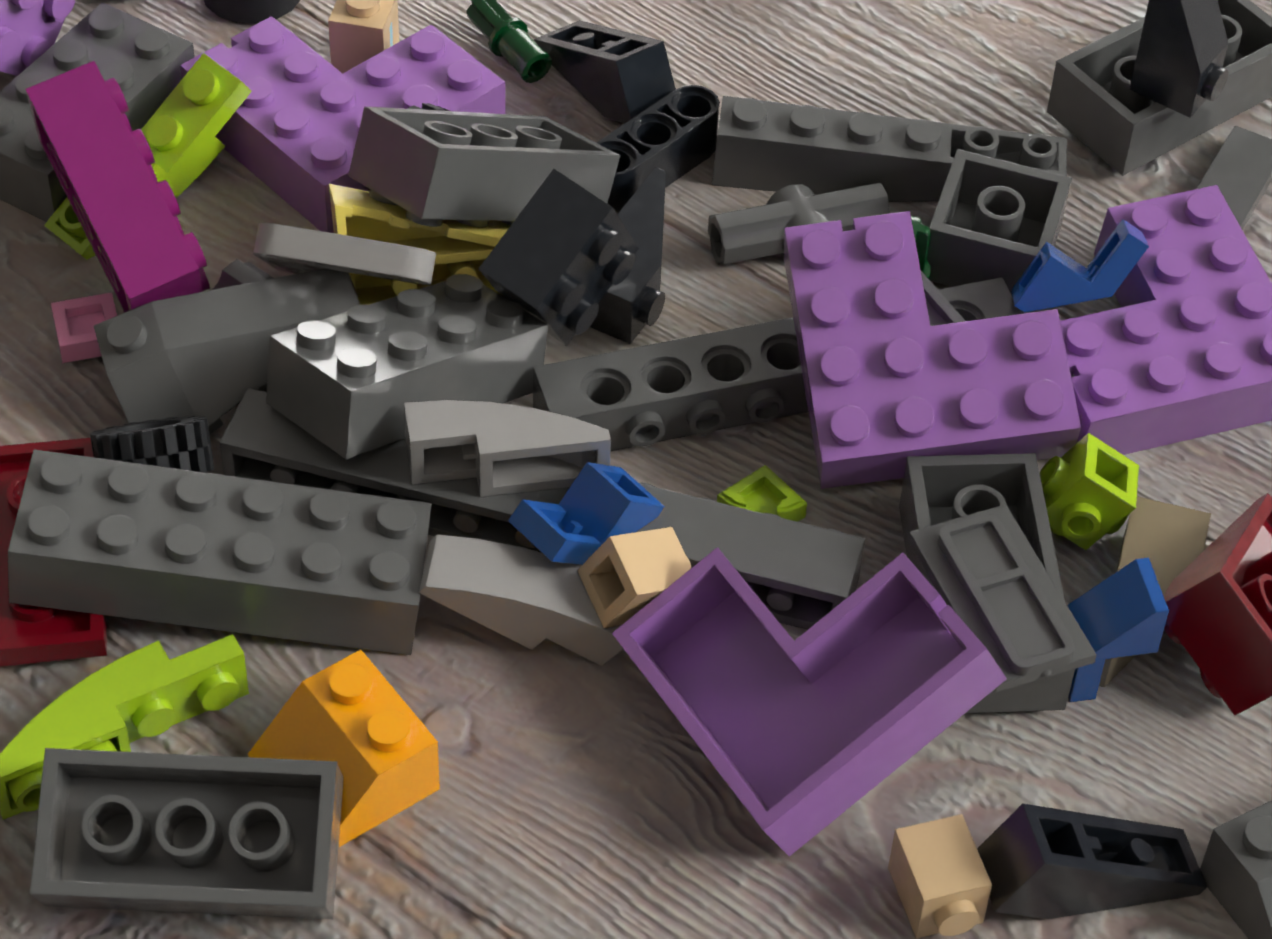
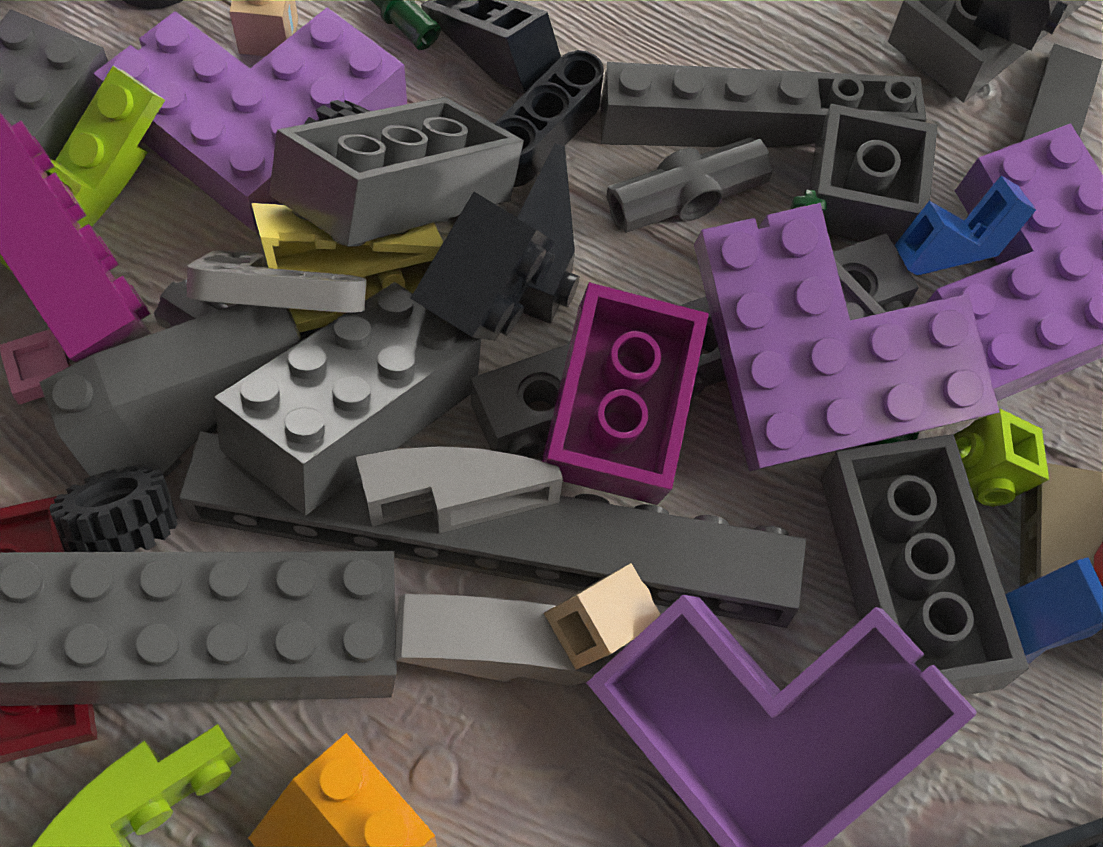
camera: 10 degrees left, 15 degrees up
(596, 506) = (546, 554): blue slope -> none
(687, 379) = (625, 394): none -> magenta brick
(765, 493) = (699, 487): lime tile -> none
(1003, 595) = (950, 604): dark grey piece -> none

